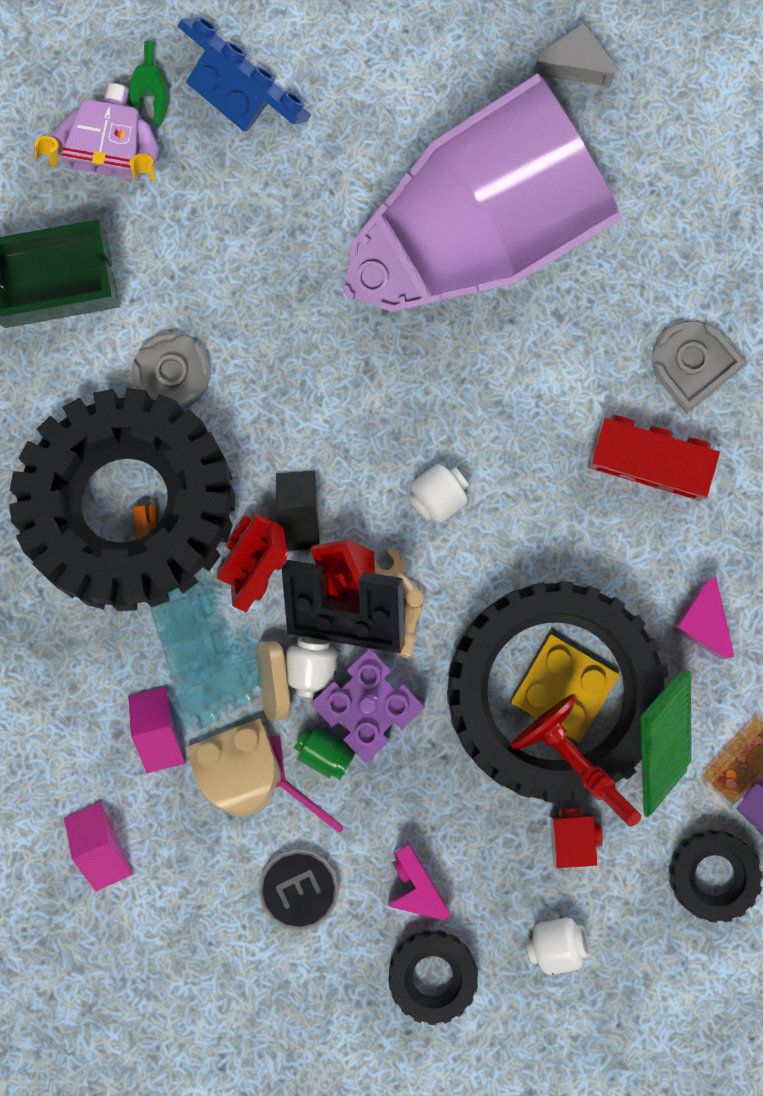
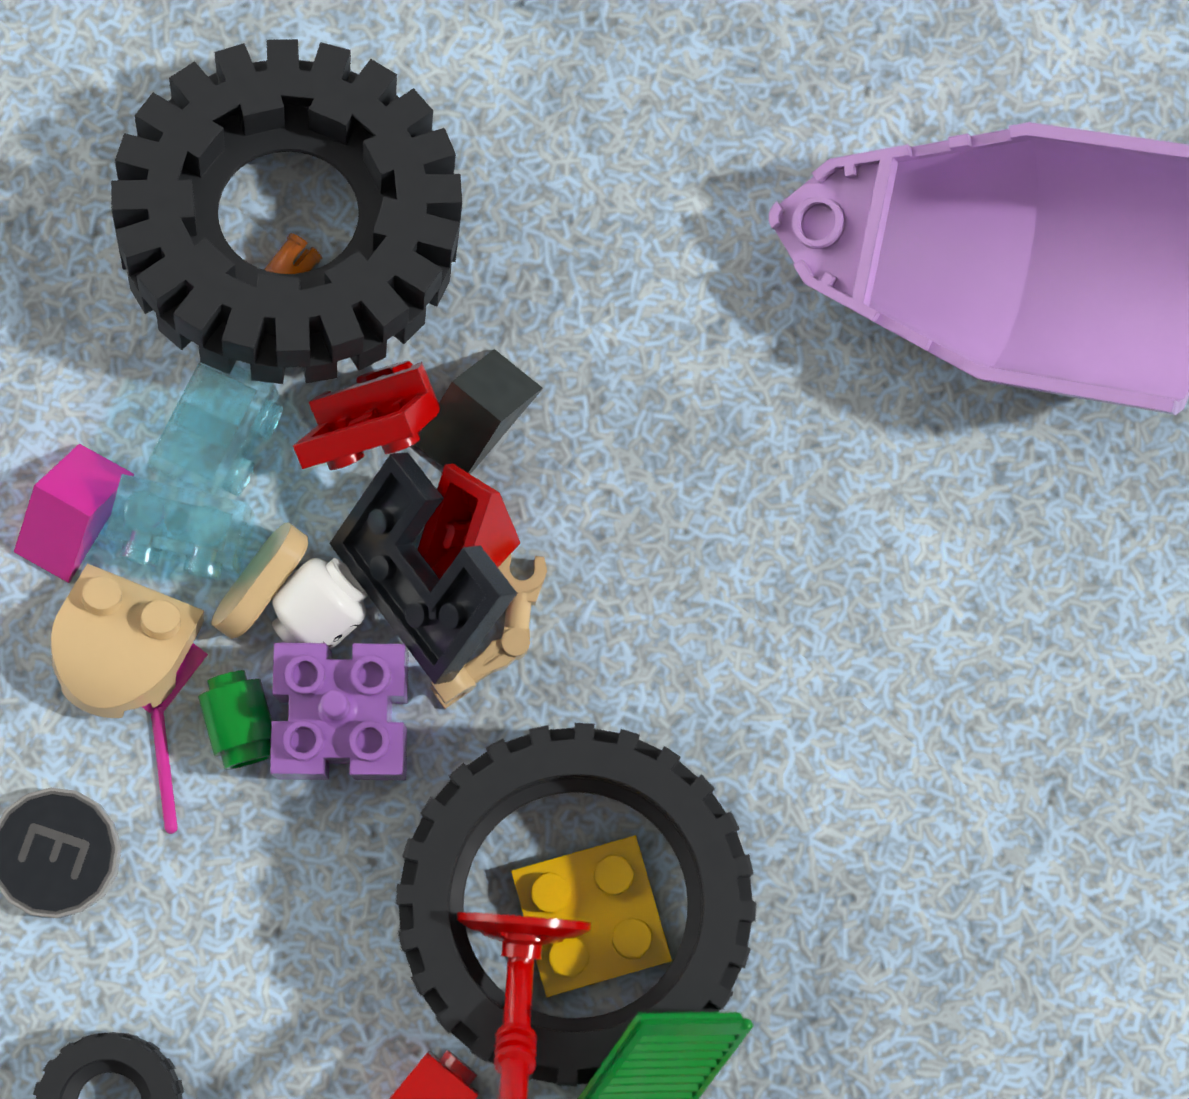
camera: 35 degrees right, 5 degrees down
(179, 379) = (487, 145): light grey tile -> none
(422, 896) = (191, 1000): dark pink slope -> none
(439, 493) = (660, 546): white head -> none
(654, 458) = (955, 742): red brick -> none
(694, 362) = (1112, 677): light grey tile -> none
(705, 621) = (832, 995): dark pink slope -> none

